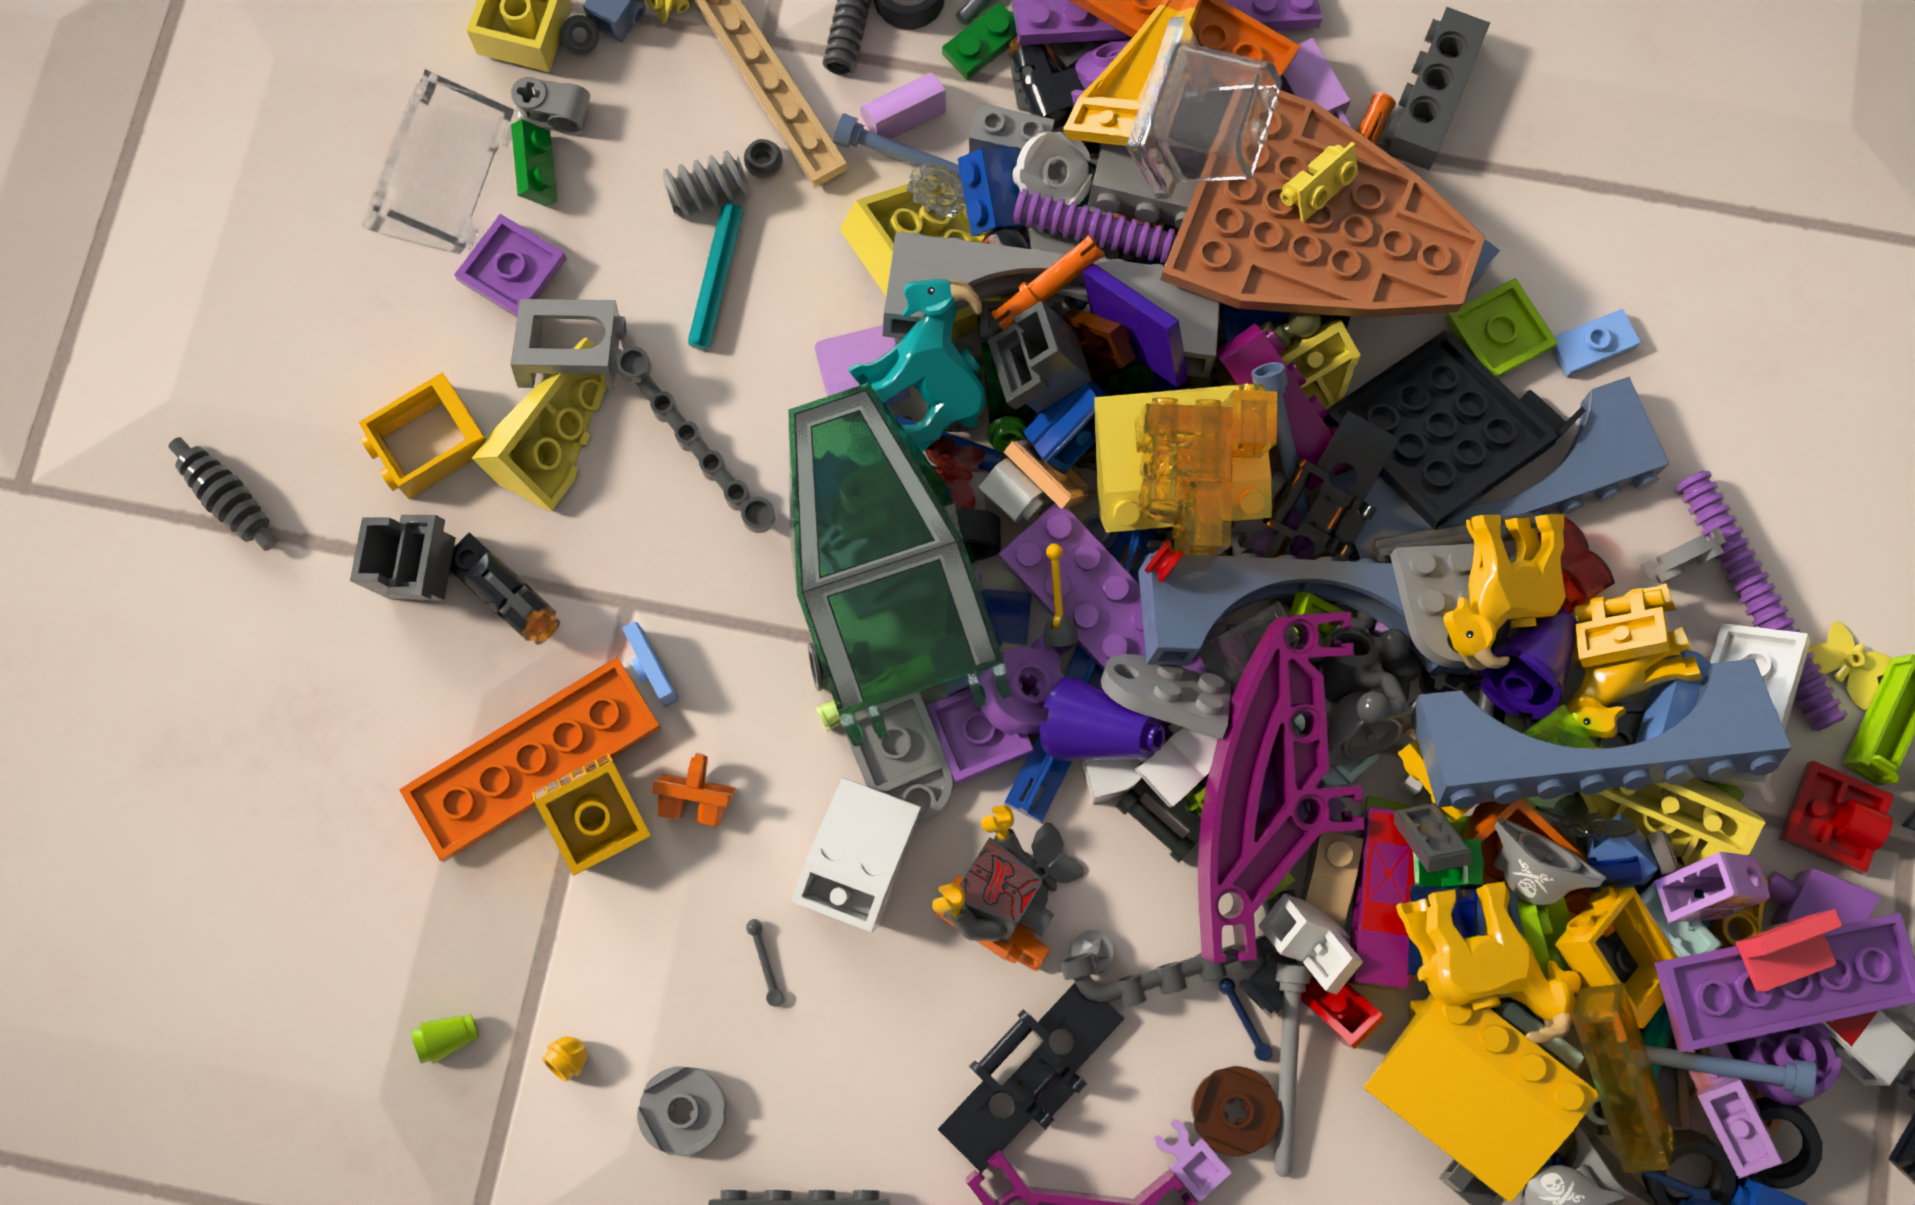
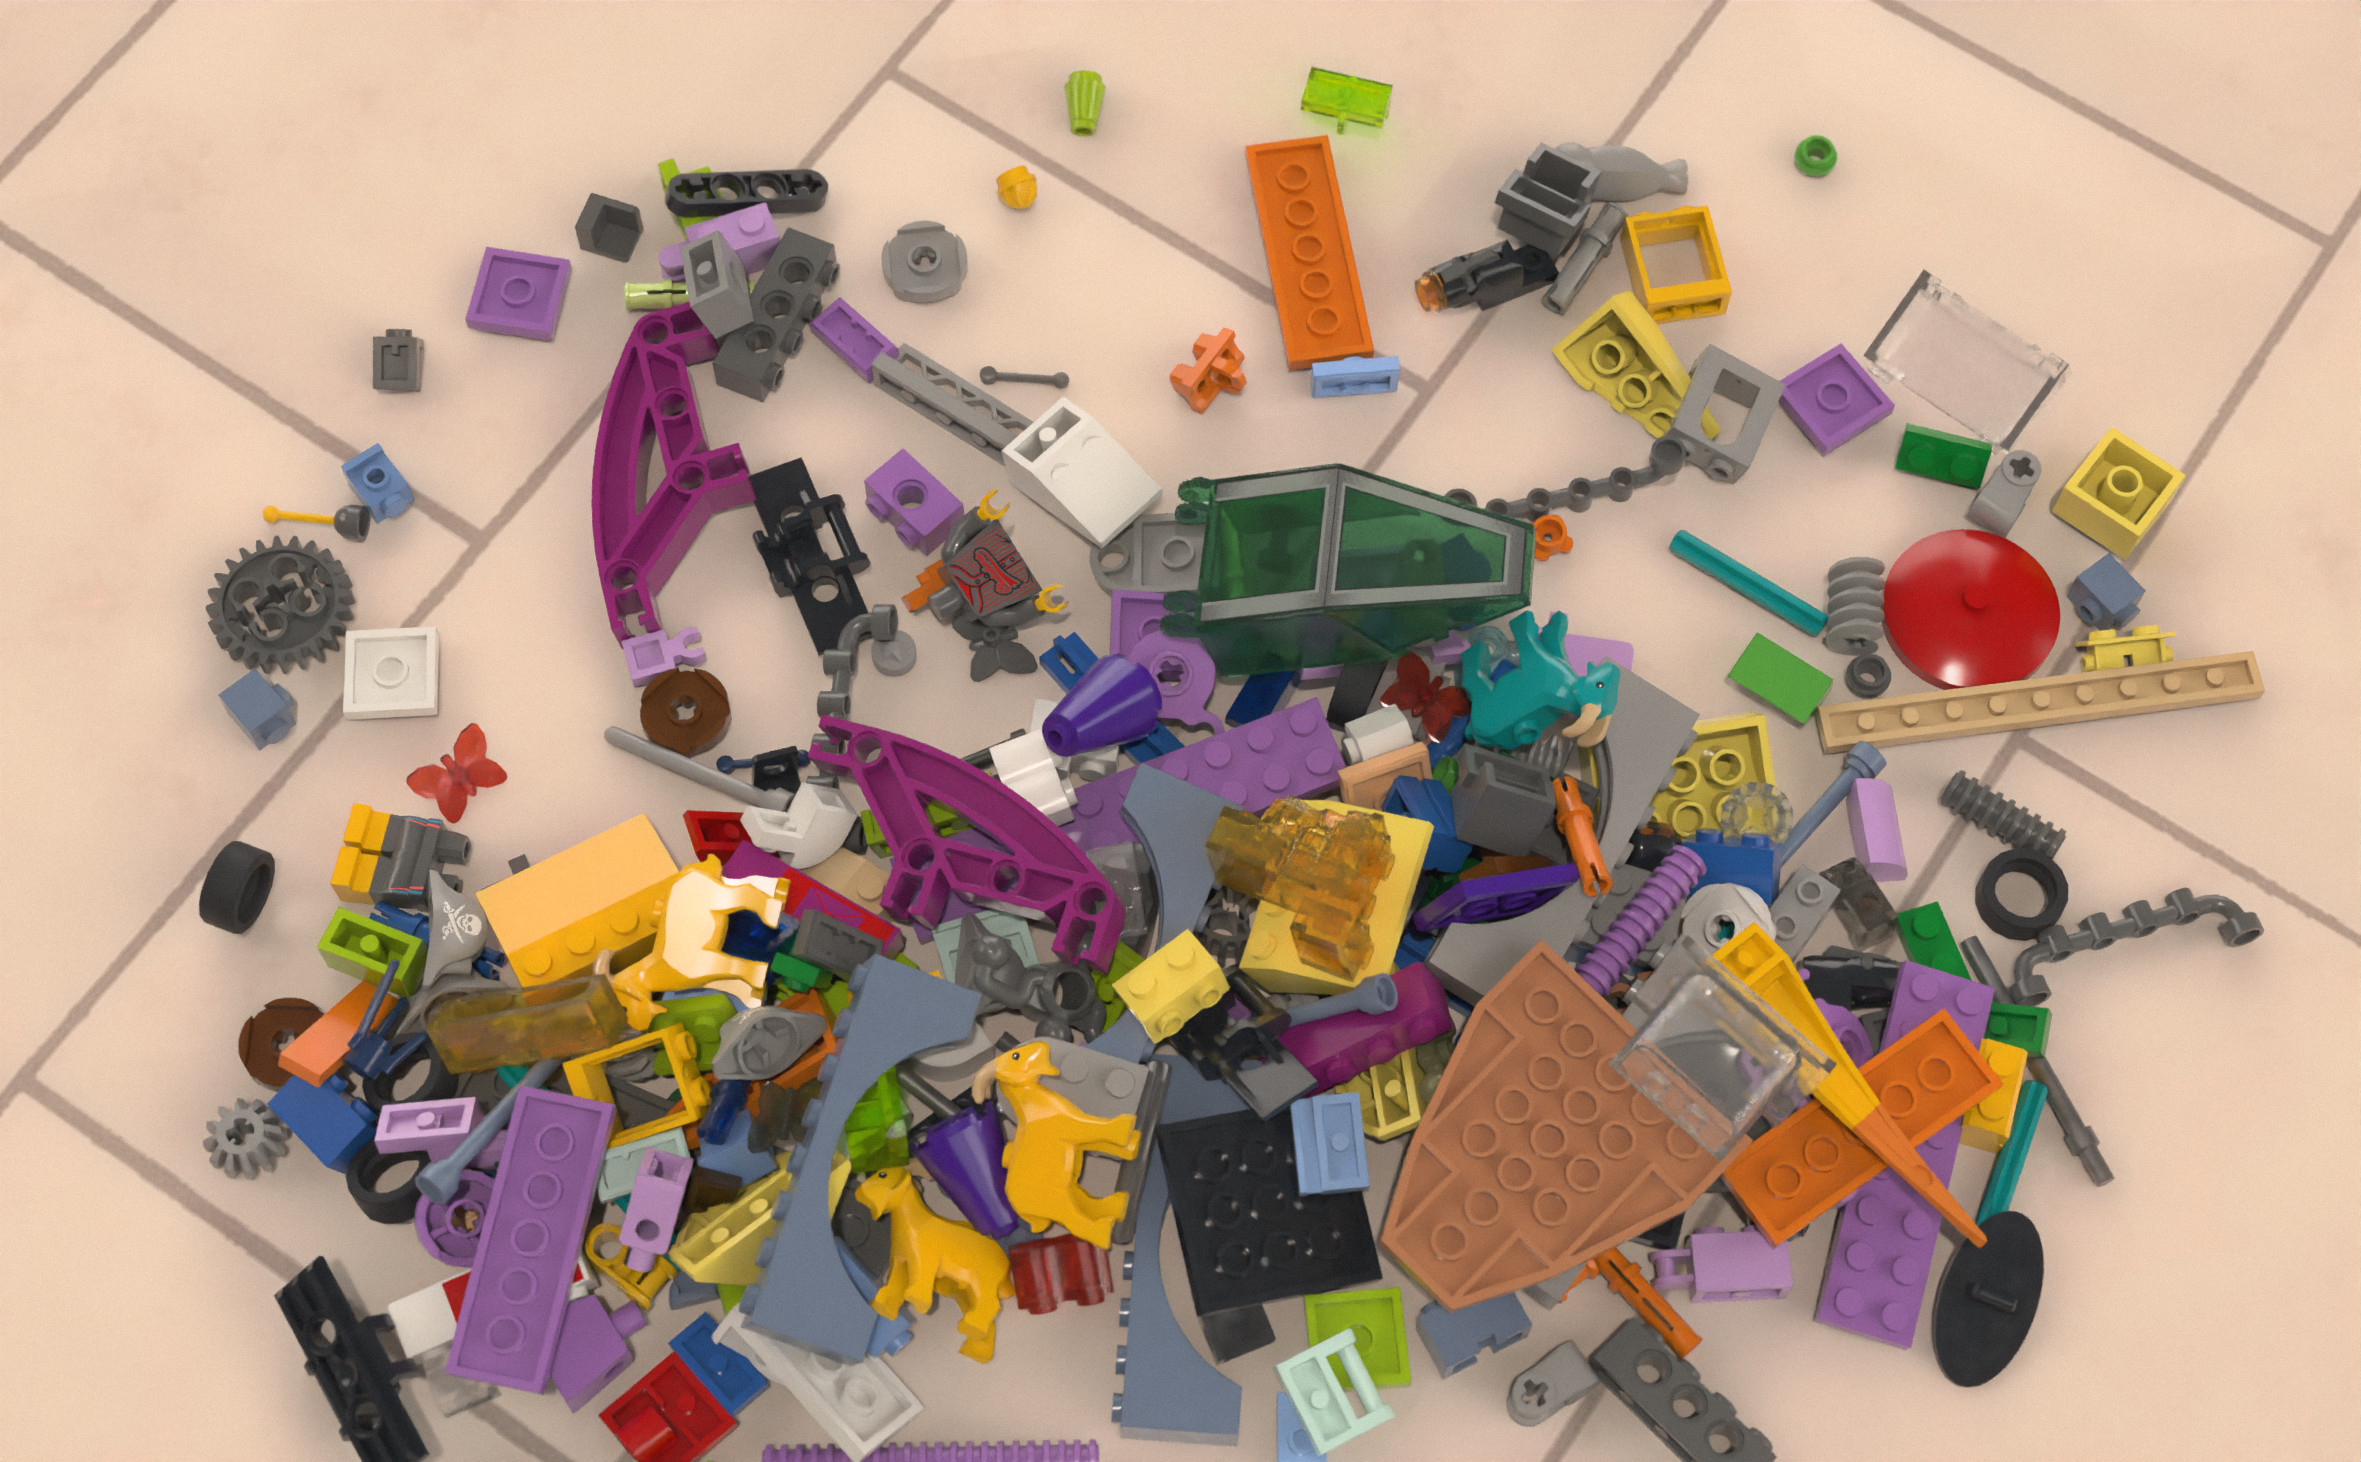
camera: 110 degrees right, 10 degrees down
(222, 493) = (1687, 85): dark grey piece -> none
(252, 355) = (1819, 147): none -> bright green plate
(336, 518) = (1628, 172): none -> light grey animal
(356, 783) = (1346, 98): none -> clear neon green panel
(455, 517) = (1593, 245): none -> light grey pin
(590, 28) = (2076, 543): dark grey plate -> none
(590, 814) = (1227, 270): yellow brick -> none
(669, 103) = (1969, 610): none -> red dish
(735, 437) = (1556, 528): none -> orange plate
(793, 1139) = (851, 337): none -> medium lavender plate
(801, 218) = (1781, 678): none -> bright green brick
(835, 1011) = (945, 409): none -> light grey fence
(941, 973) = (906, 481): none -> medium lavender brick
(960, 106) = (1861, 904): none -> clear smoke leg
(1059, 629) = (1214, 724): hinge -> none
(1164, 561) = (1223, 796): red bush -> none
(1169, 693) = (1093, 777): light grey plate -> none
(1325, 554) = (1172, 986): none -> light yellow bracket
(1331, 172) = (1574, 1132): light yellow hinge -> none
(1379, 391) = (1329, 1144): none -> light blue plate
(1461, 180) = (1556, 1380): none -> light grey piece
(1570, 329) = (1320, 1399): none -> light aqua plate
(1625, 635) = (948, 1248): yellow plate -> none
(1671, 561) = (1010, 1395): light grey plate -> none
(1787, 787) = (721, 1369): none -> blue plate
(1789, 950) = (560, 1236): coral panel -> none

